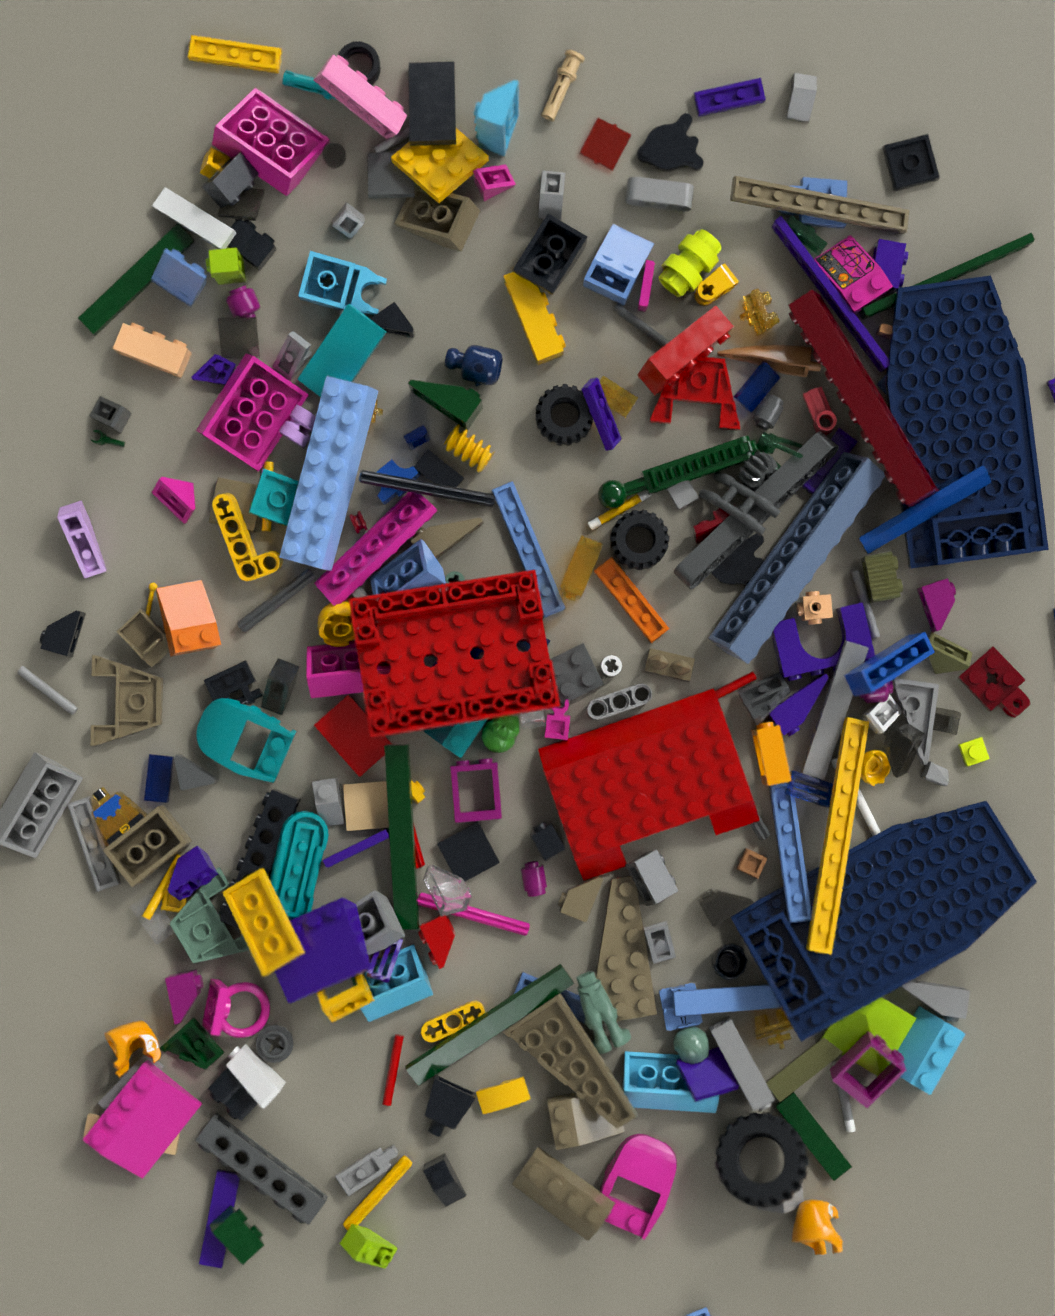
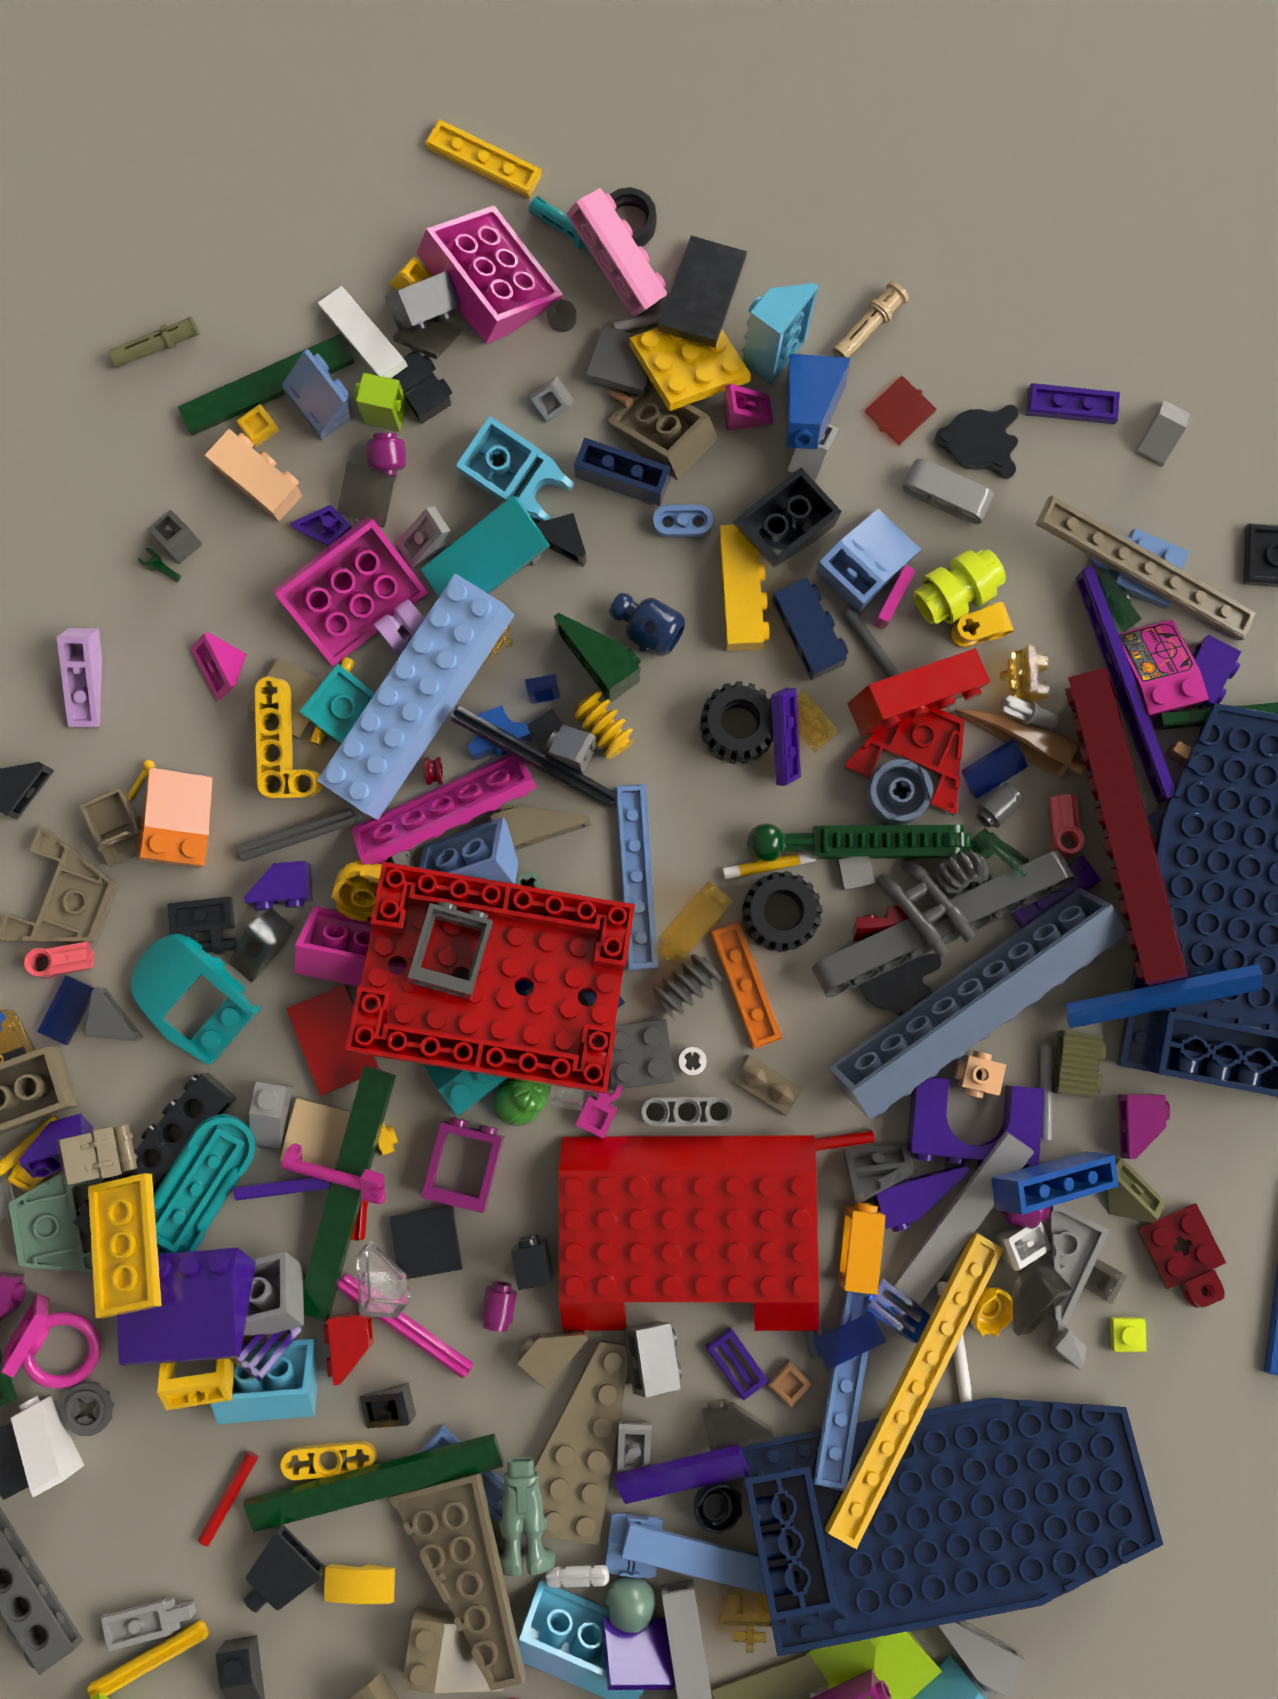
camera: 15 degrees right, 5 degrees down
(42, 275) = (164, 337): none -> olive pin
(140, 312) = (257, 425): none -> yellow tile
(143, 743) = (61, 960): none -> coral piece
(220, 868) = (97, 1154): none -> dark tan piece
(279, 639) = (281, 884): none -> dark purple slope
(399, 203) = (621, 398): none -> medium nougat piece
(417, 824) = (370, 1183): none -> dark pink hinge
(418, 668) = (438, 981): none -> dark grey window
(419, 259) = (622, 471): none -> dark blue brick
(452, 472) = (572, 747): none -> light grey slope
(474, 279) = (682, 519): none -> medium blue plate
(481, 972) = (388, 1407): none -> black slope
(538, 156) = (812, 397): none -> blue slope
(589, 614) = (686, 984): none -> dark grey piece
(592, 328) = (810, 628): none -> dark blue brick
(649, 1039) = (577, 1576): none -> white axle
(694, 850) = (721, 1340): none -> dark purple tile
(696, 414) = (906, 777): none -> sand blue brick
(697, 947) = (681, 1474): none -> dark purple tile
(769, 338) = (1029, 712): none -> light grey axle
(783, 819) = (849, 1340): none -> clear blue tile

